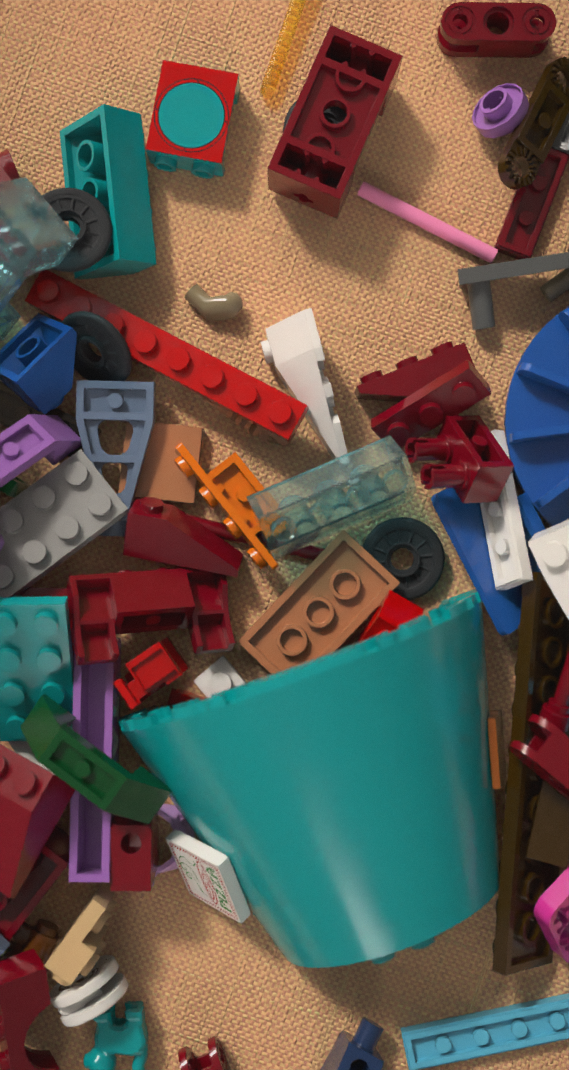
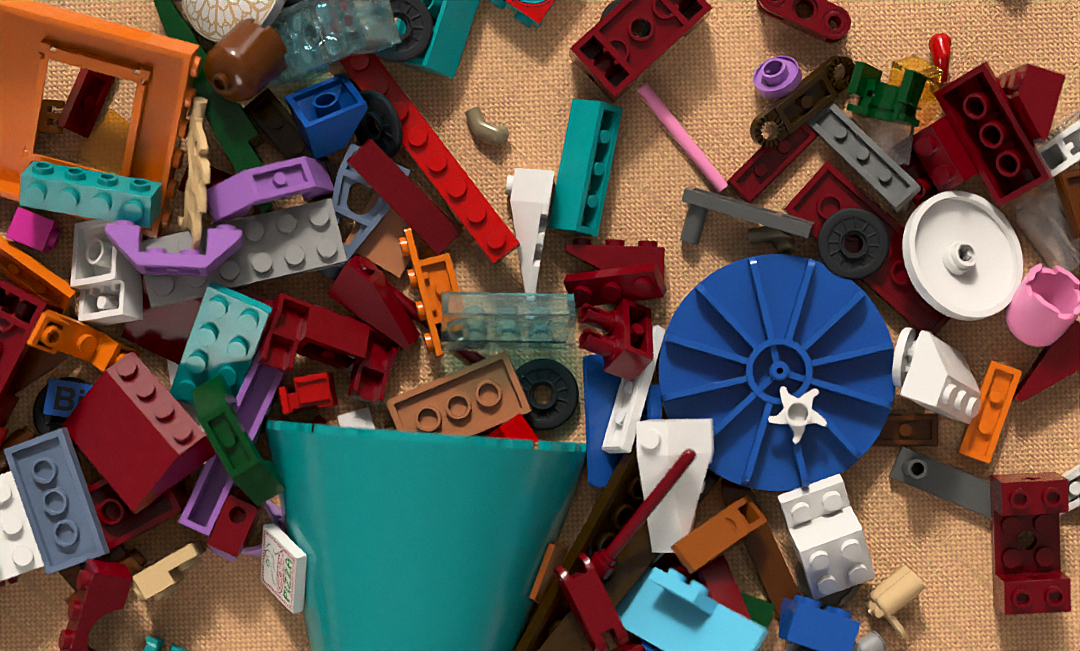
camera: 20 degrees right, 0 degrees up
(90, 994) = (148, 618): white head -> none
(158, 412) = (403, 196): none -> dark red tile
(339, 295) = (585, 167): none -> teal brick

